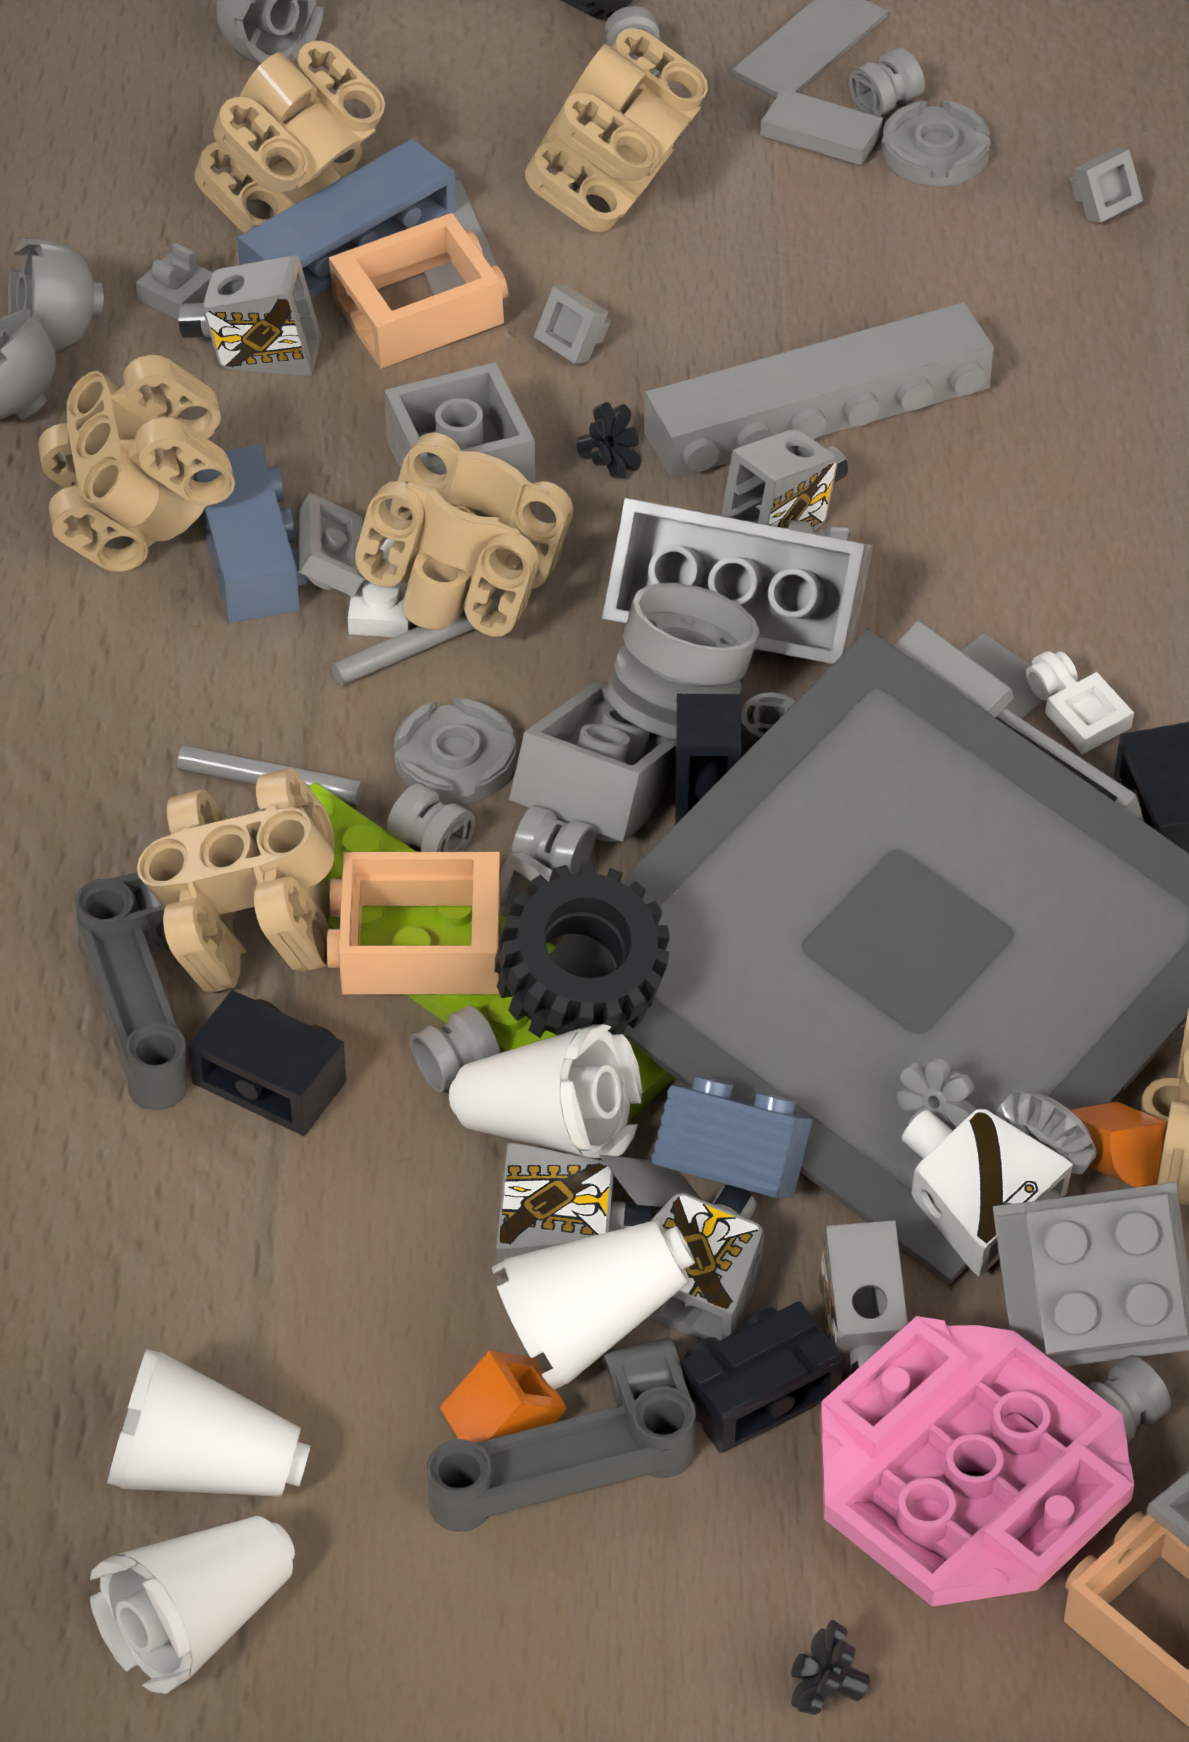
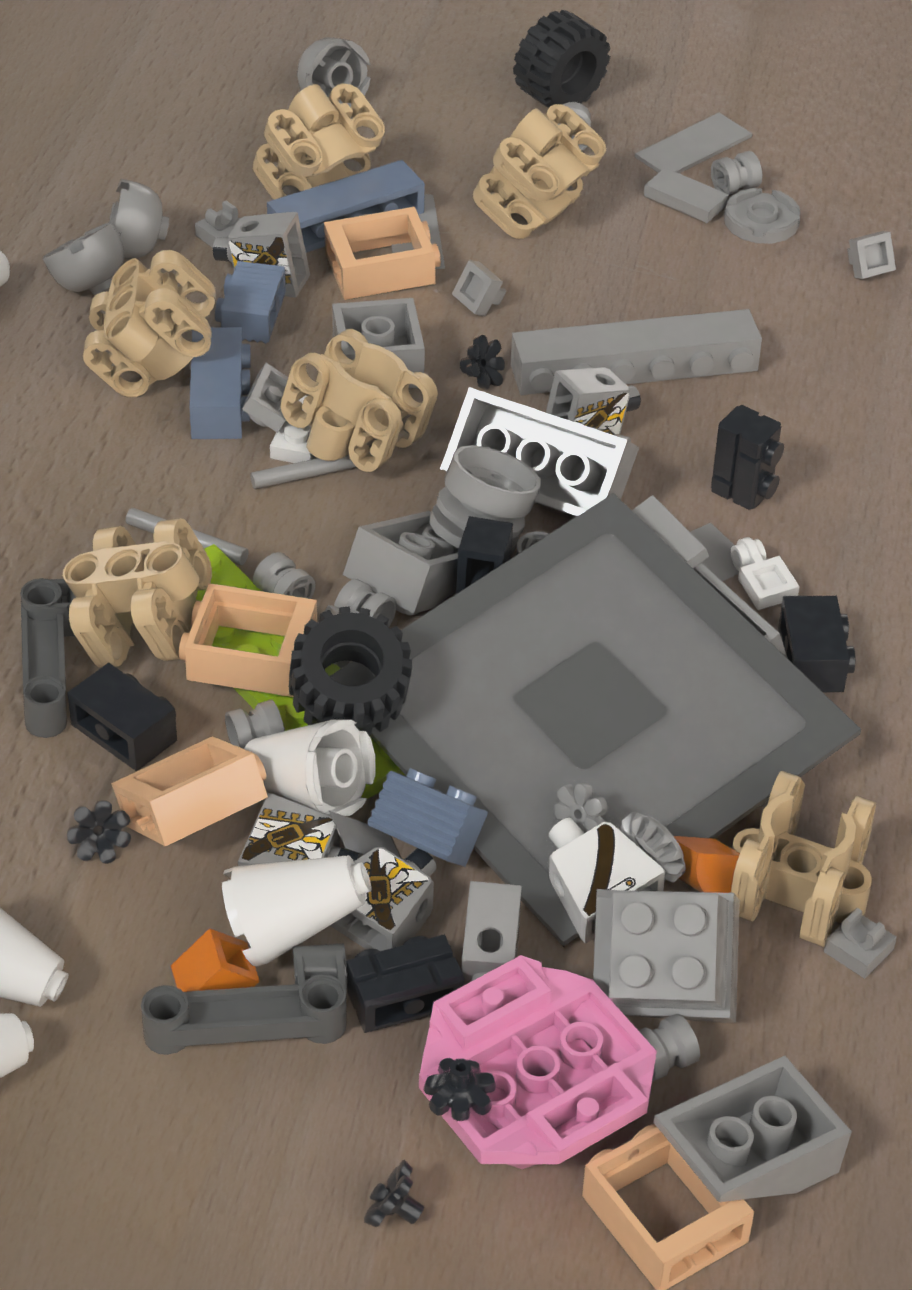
camera: 10 degrees right, 5 degrees down
(256, 394) = (252, 299): none -> sand blue brick
(288, 1235) = (99, 831): none -> black plant
(399, 1157) = (191, 790): none -> light nougat window
(456, 750) = (317, 539): light grey tile -> none
(884, 1513) = (459, 1088): none -> black plant
(1020, 533) = (747, 457): none -> black brick

